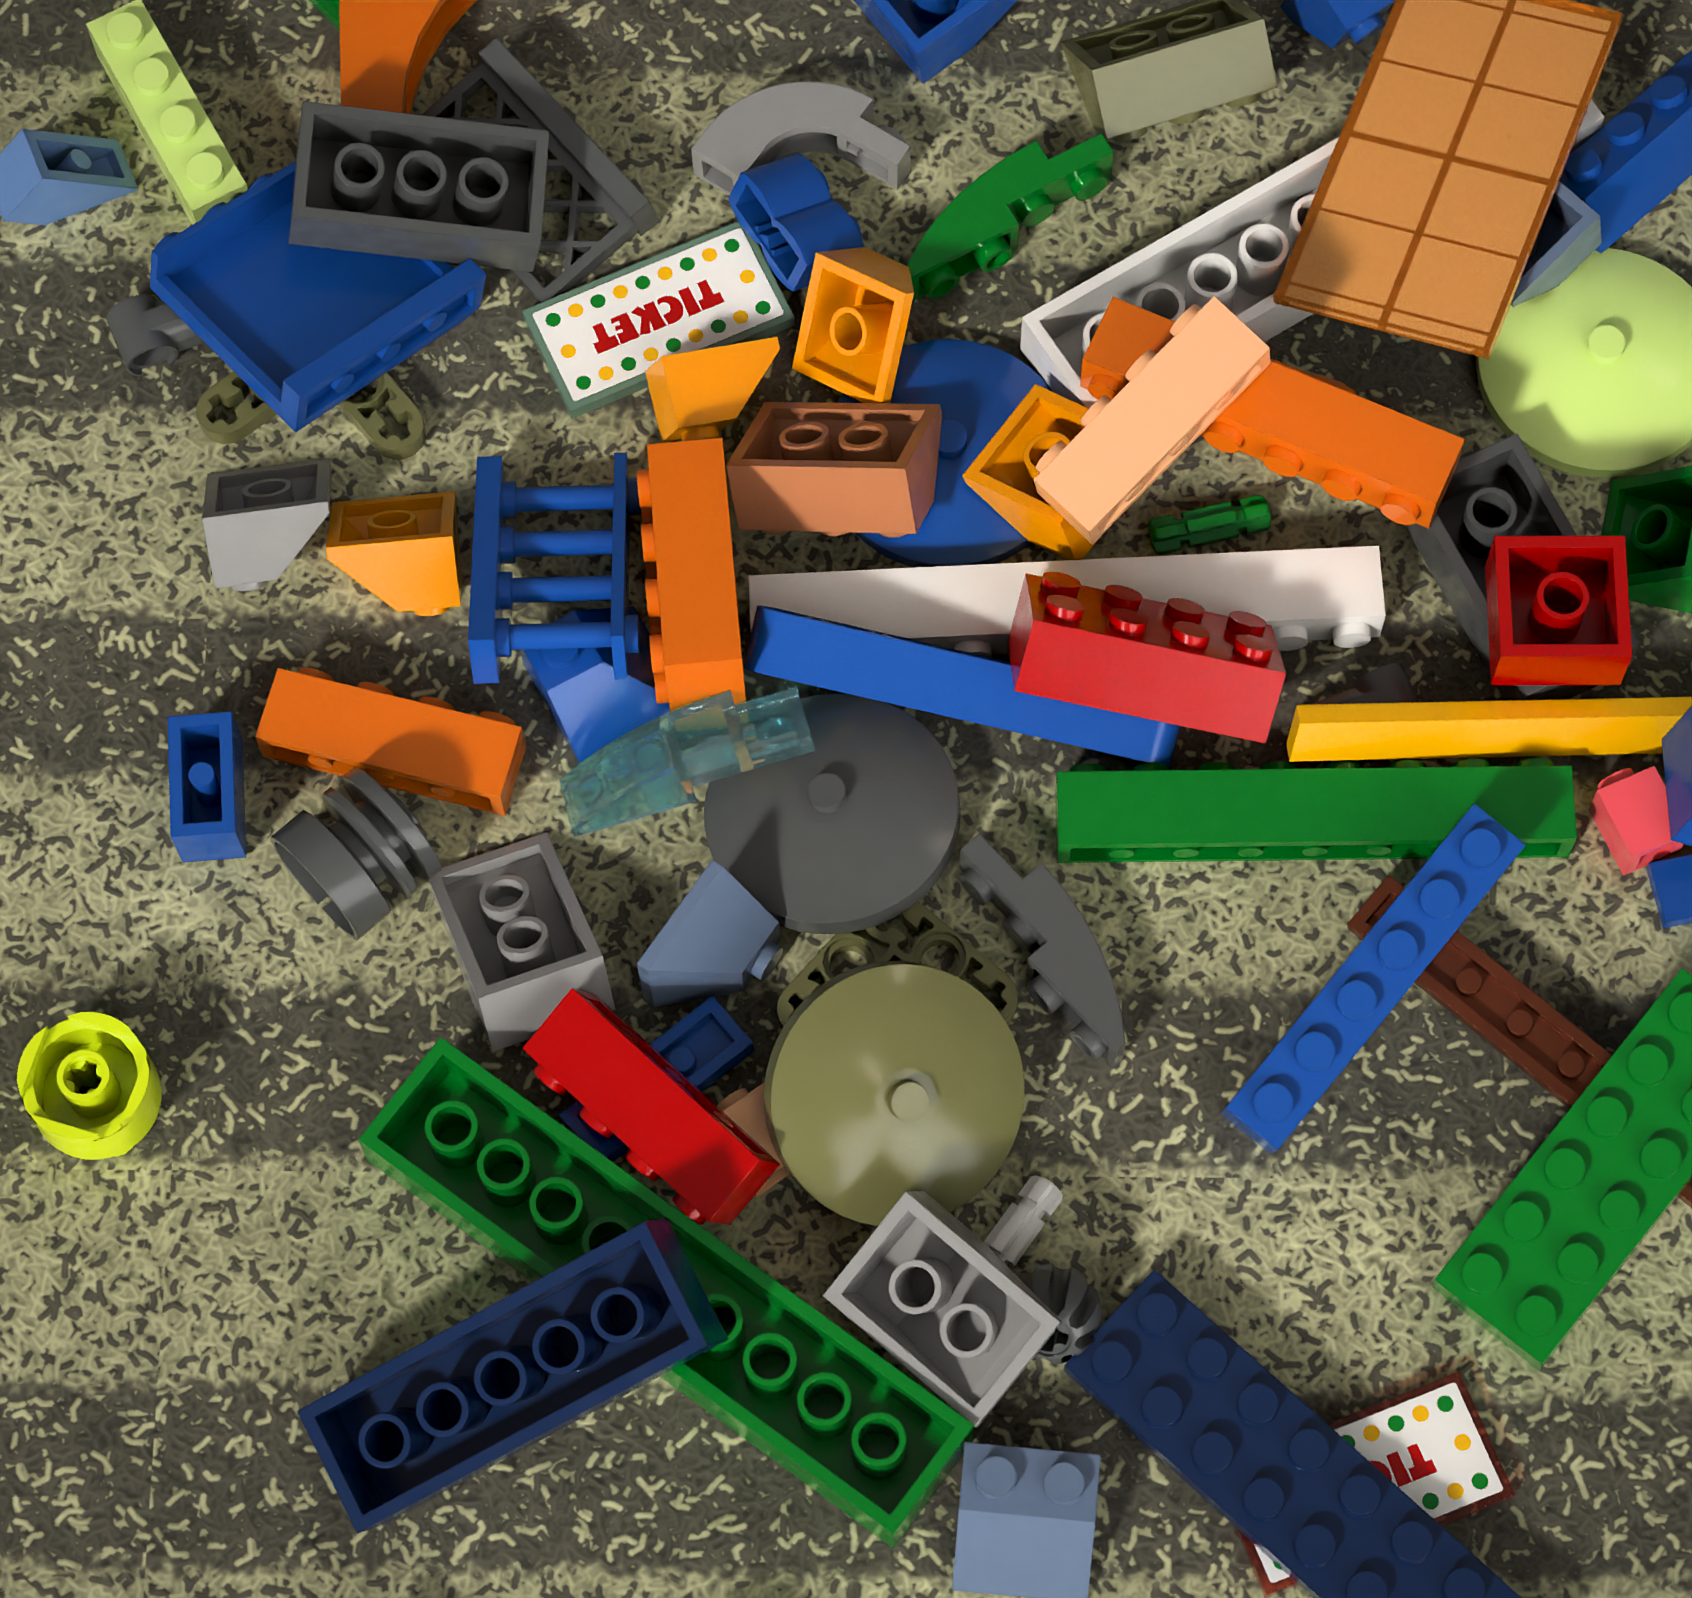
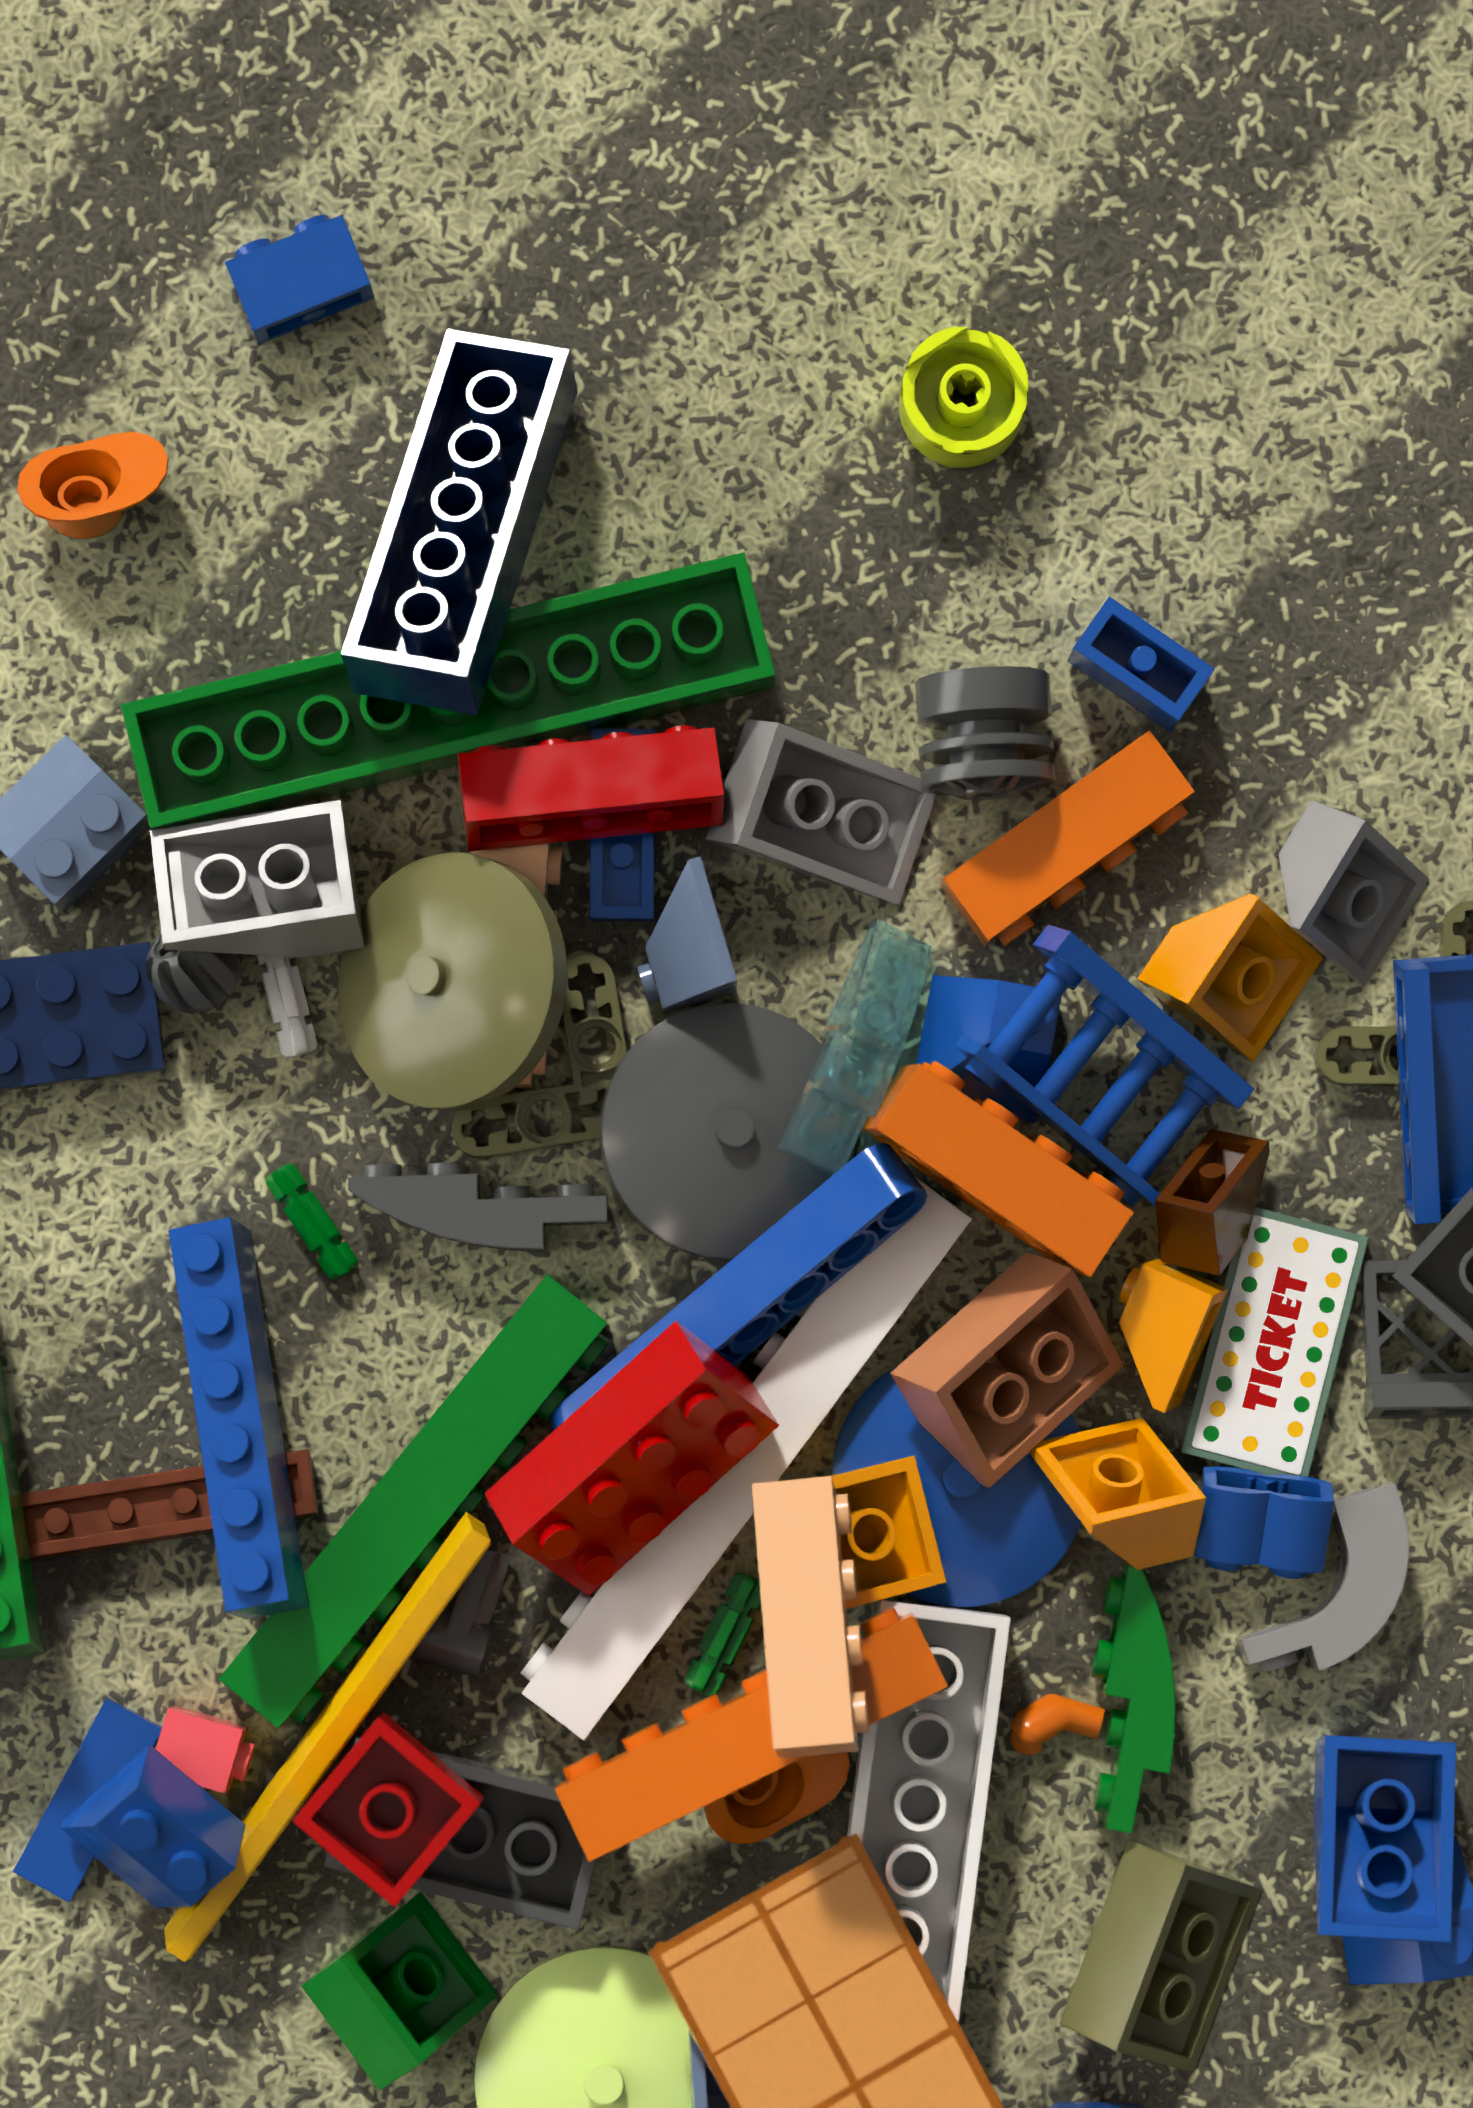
camera: 125 degrees right, 15 degrees up
(587, 427) = (1211, 1202): none -> reddish brown slope
(1065, 262) = (1050, 1716): none -> orange arm
(1172, 1069) = (311, 1221): none -> green axle

